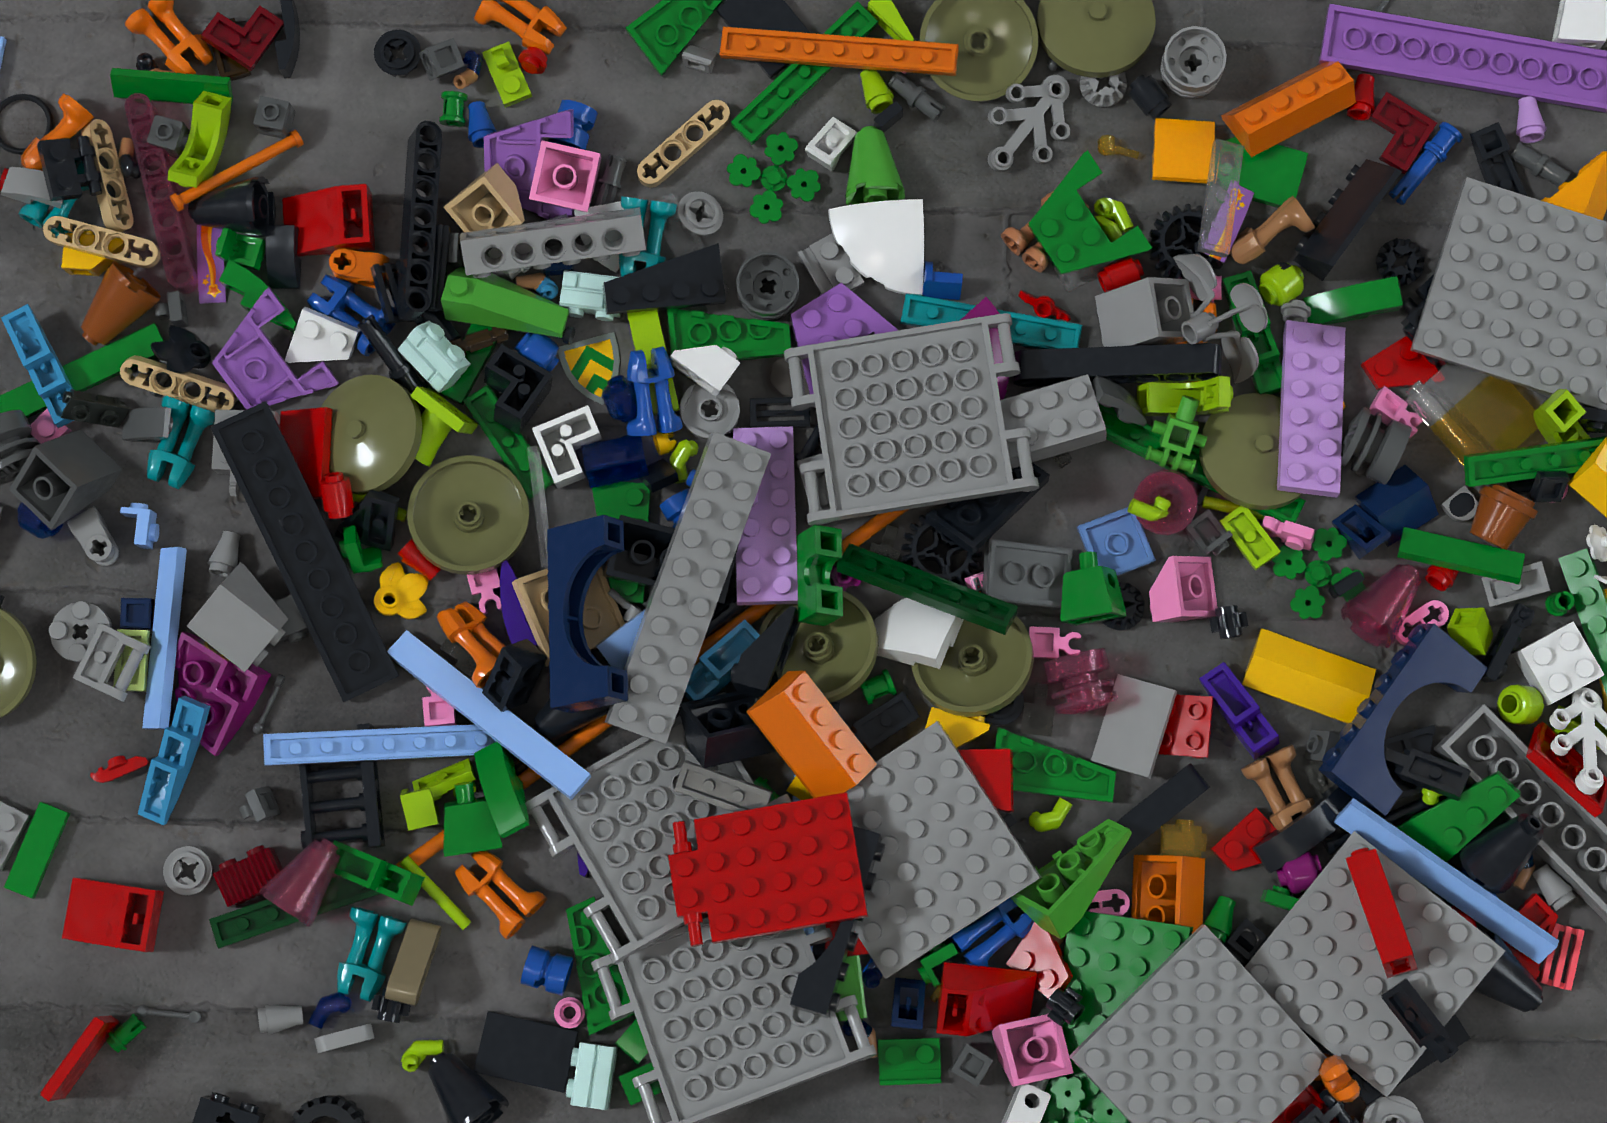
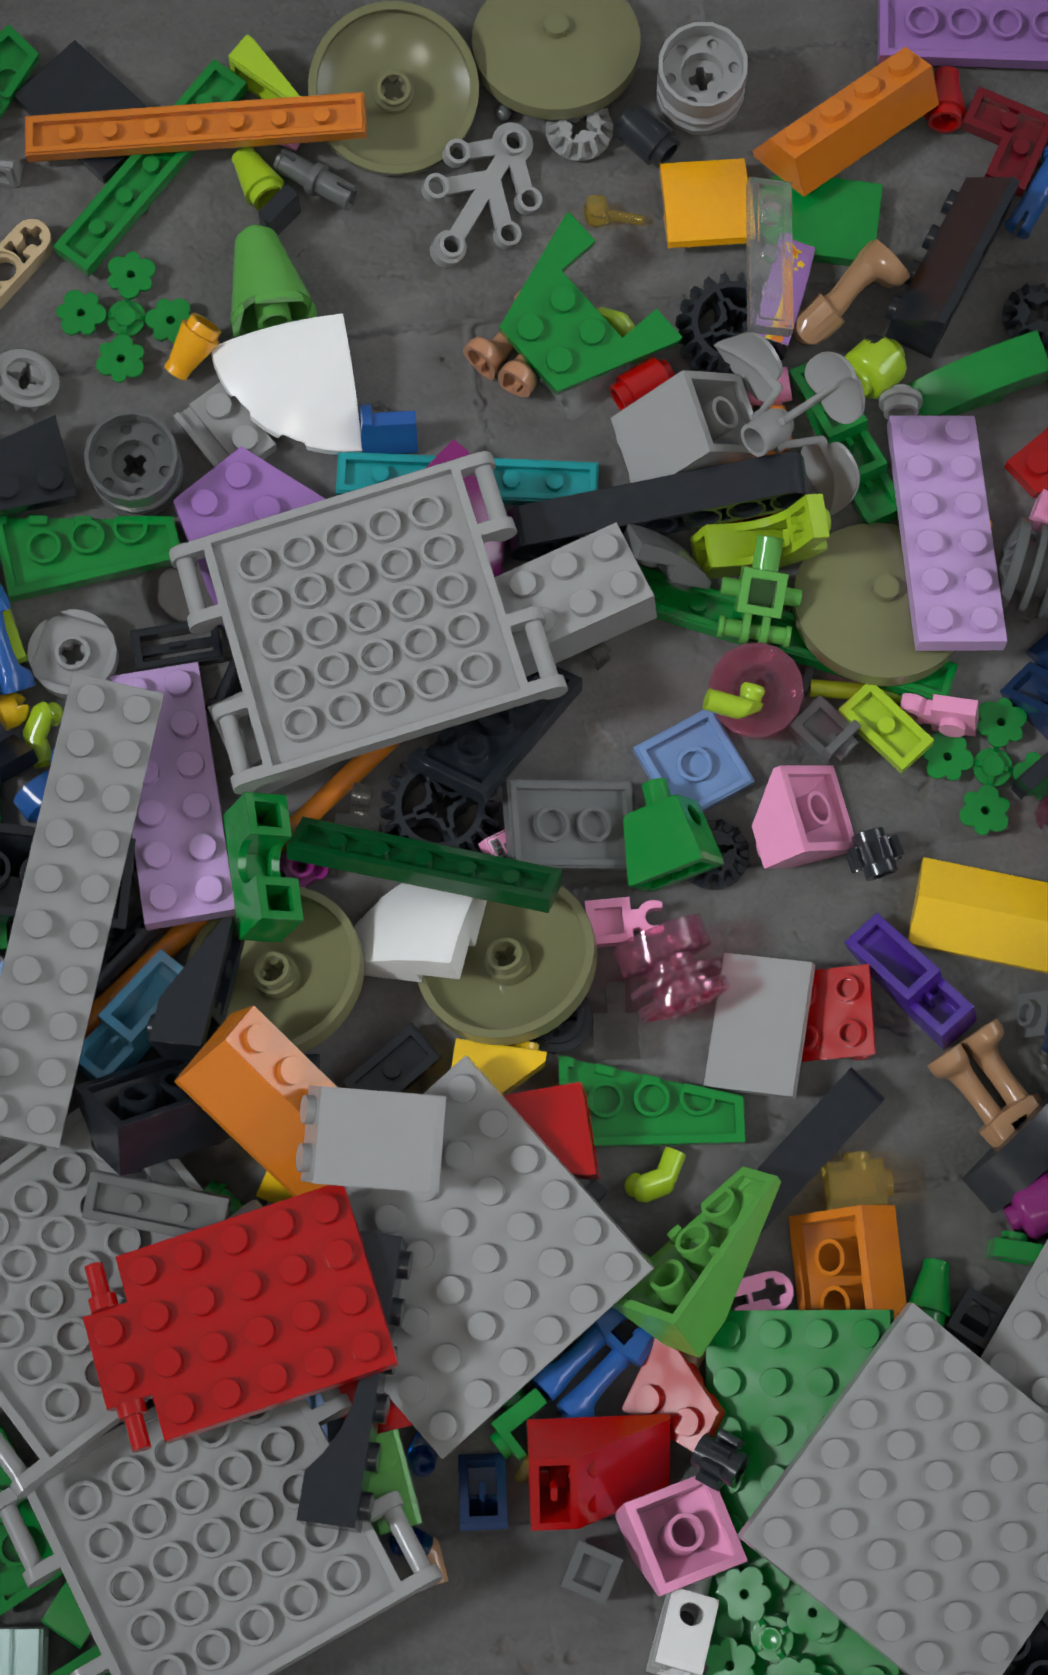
camera: 15 degrees left, 5 degrees down
(706, 366) = (57, 588): white slope -> none
(818, 204) = (193, 343): none -> light orange cone
(830, 143) = (198, 258): white slope -> none
(870, 768) = (371, 1139): none -> light grey slope
(878, 687) = (372, 1021): green bush -> none
(909, 1061) = (497, 1581): green plate -> none
(1044, 306) = (540, 444): red piece -> none
(1116, 211) = (619, 298): lime arm -> none
(1236, 846) = (938, 1180): red wing -> none

